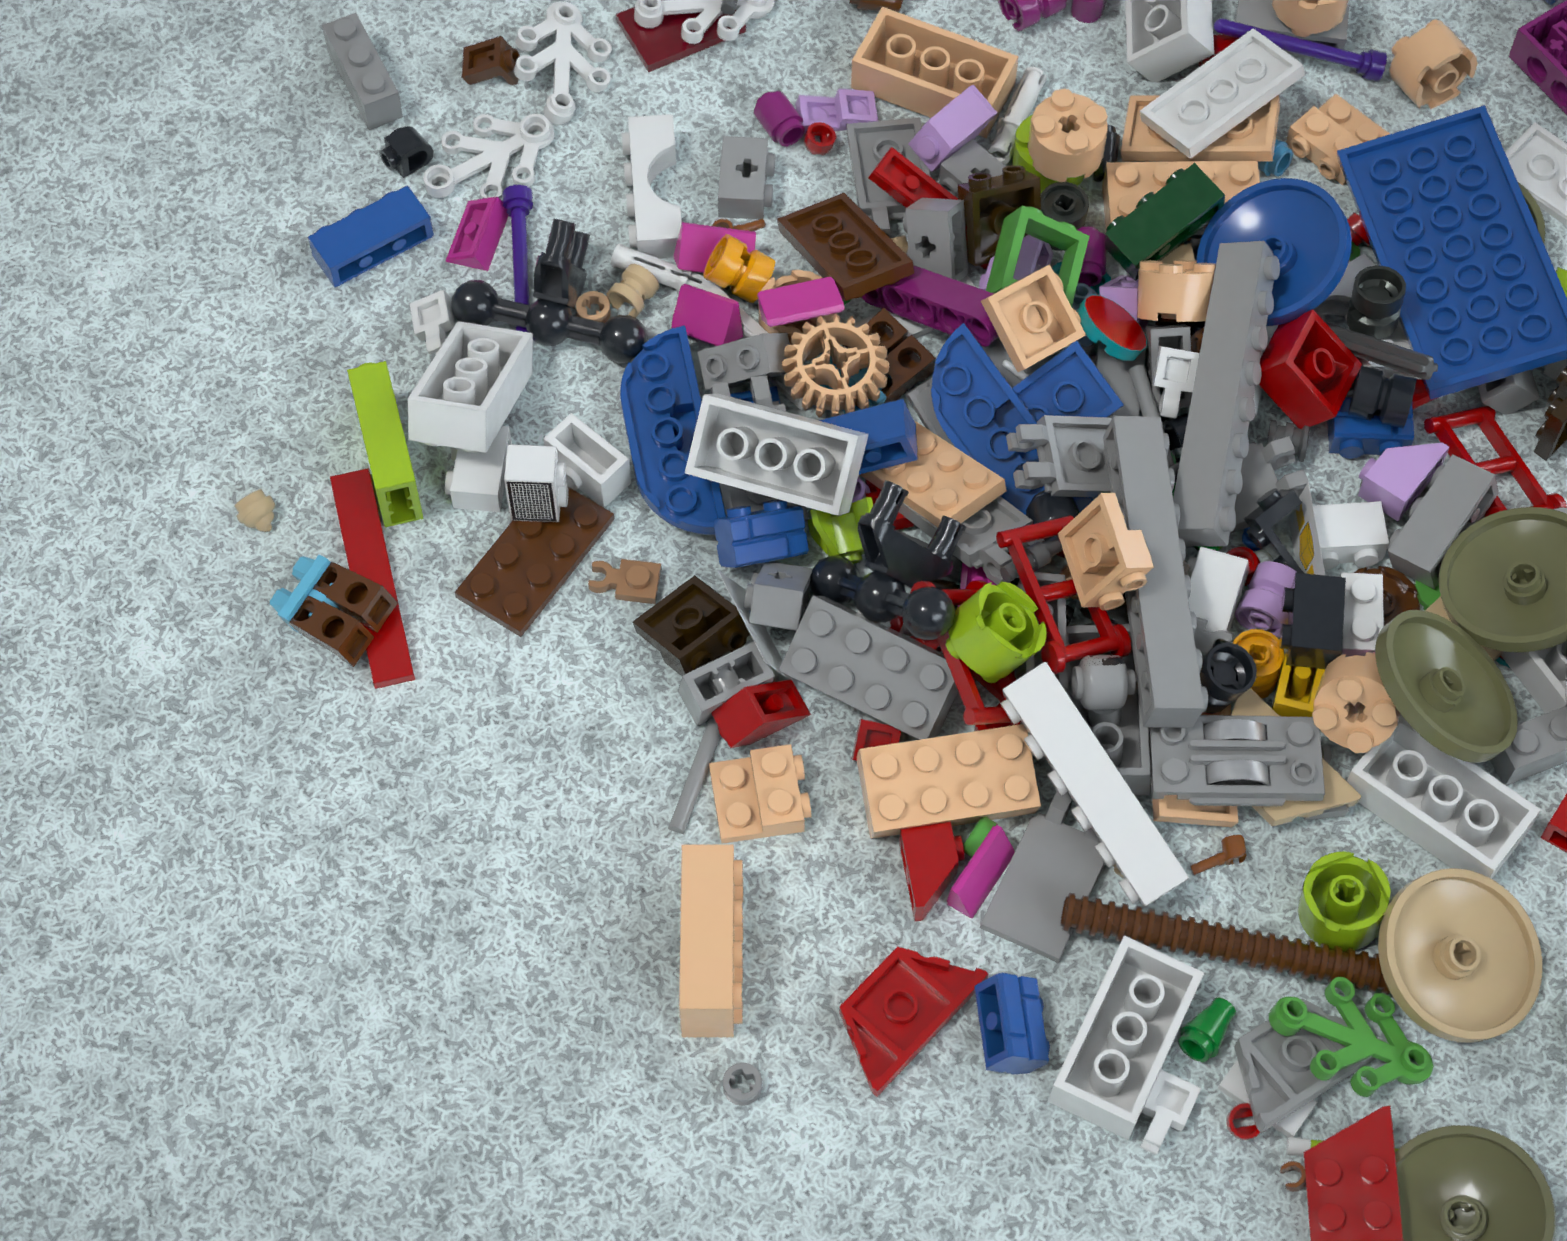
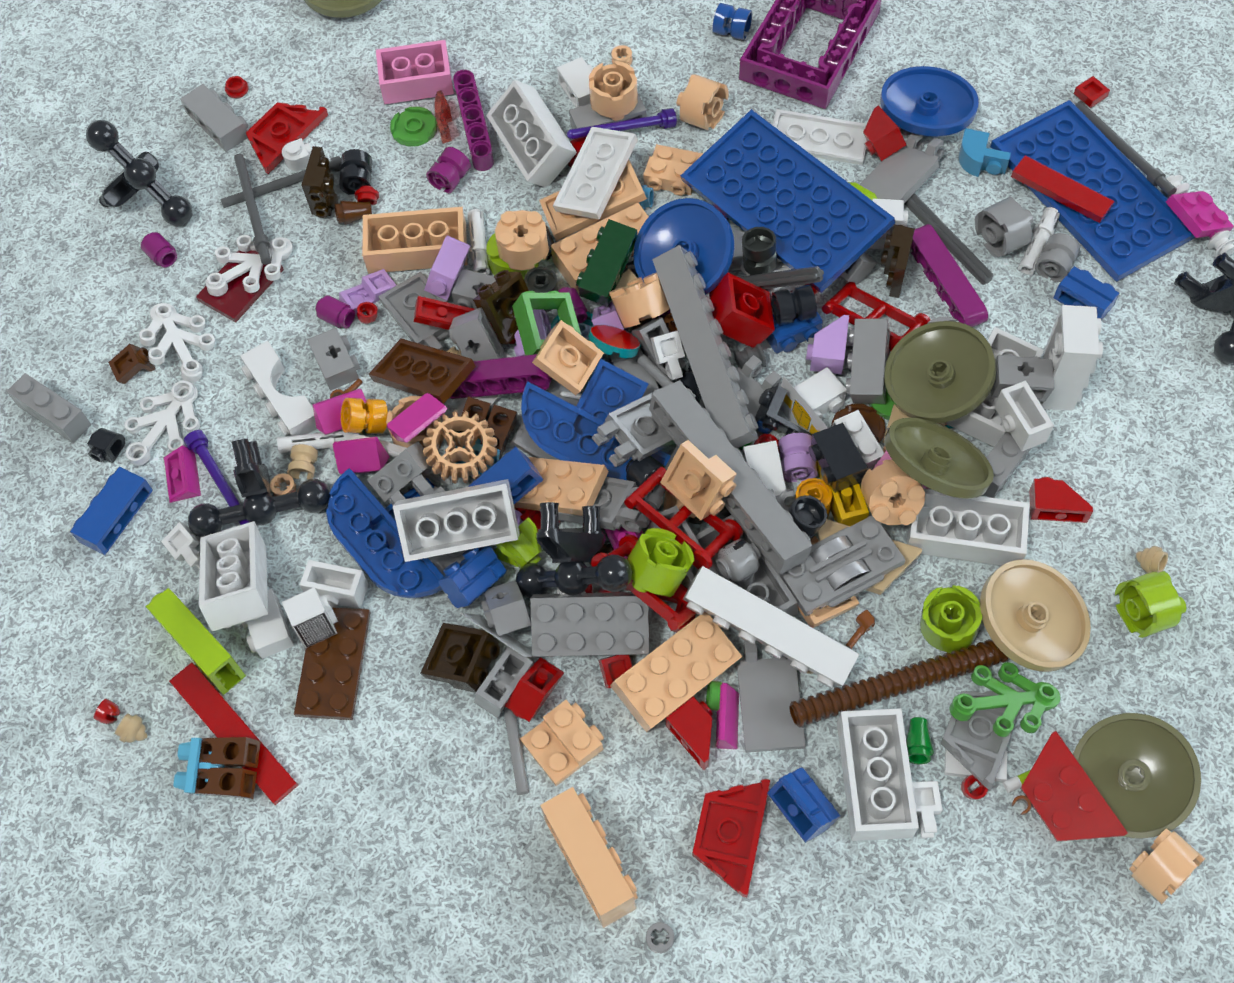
camera: 25 degrees left, 0 degrees up
(236, 471) = (106, 711): none -> red hinge
(633, 581) = (405, 646): medium nougat plate -> none

